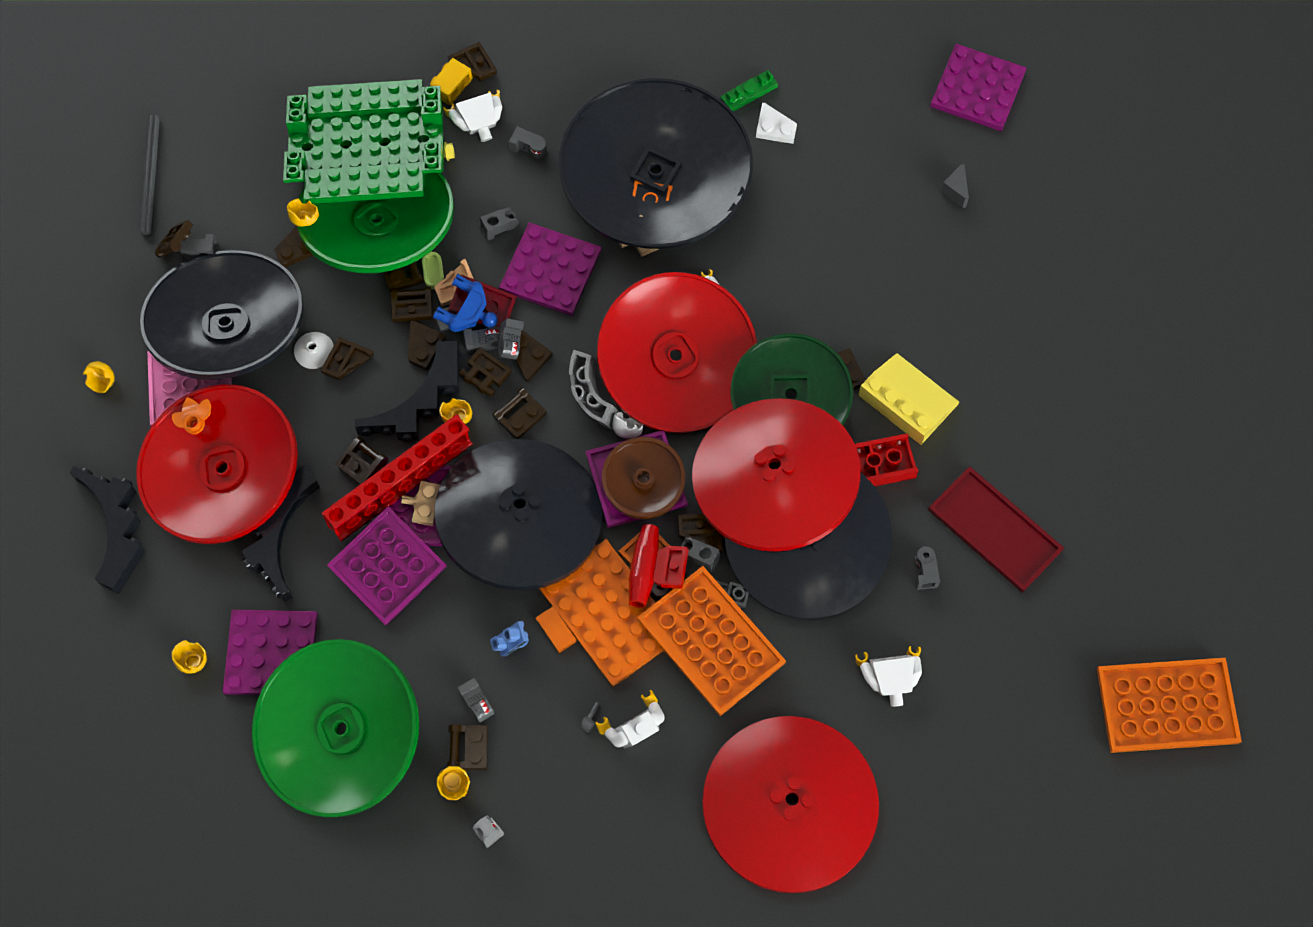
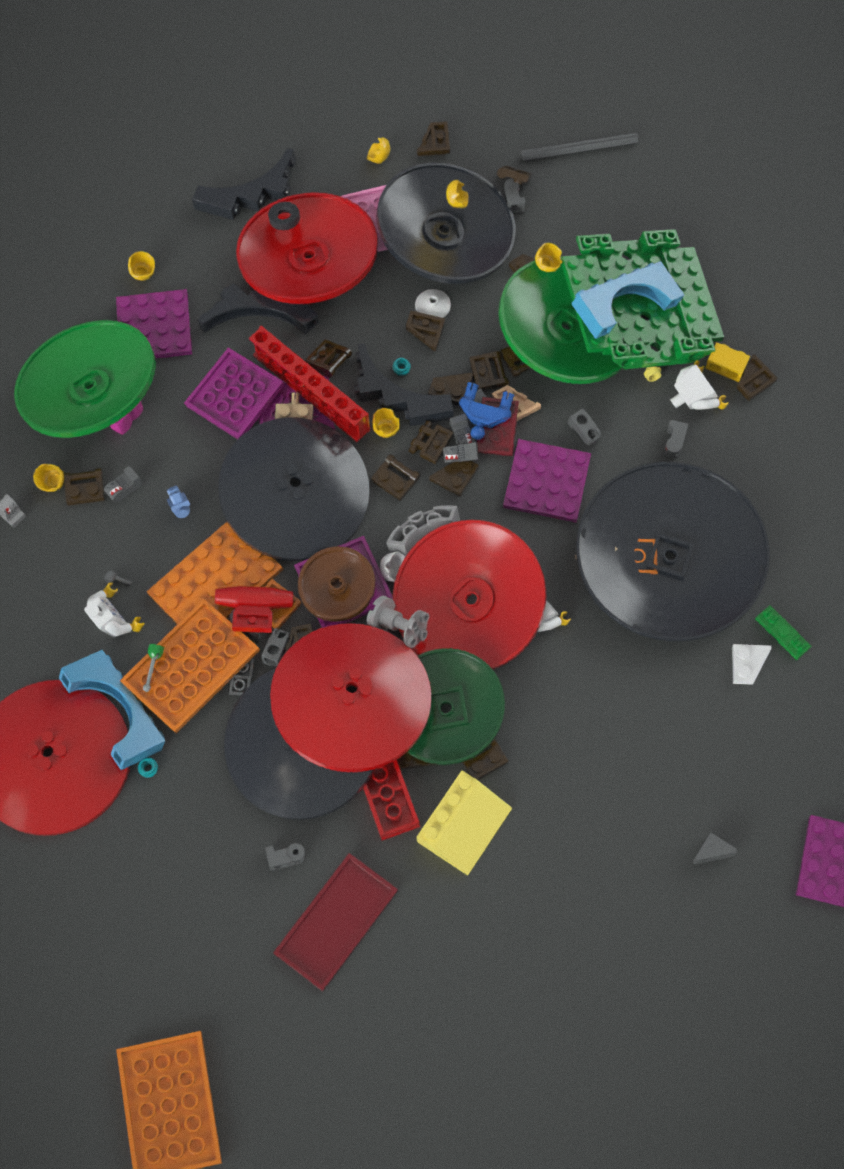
camera: 85 degrees right, 0 degrees up
(99, 316) = (435, 140): none -> dark brown wing
(157, 478) = (284, 224): none -> black tyre
(192, 413) = (345, 219): orange plate -> none
(194, 294) = (455, 195): none -> yellow hair
(374, 171) = (651, 282): none -> dark azure arch
(386, 385) = (401, 362): none -> teal plate
(432, 269) = (528, 382): yellowish green tile -> none
(556, 629) = (193, 538): orange tile -> none
(691, 429) = (387, 618): none -> light grey piece
(696, 671) = (154, 652): none -> hinge
(782, 700) = (99, 674): none -> dark azure arch
(820, 695) = (145, 762): none -> teal plate
(892, 674) = (174, 833): white torso -> none

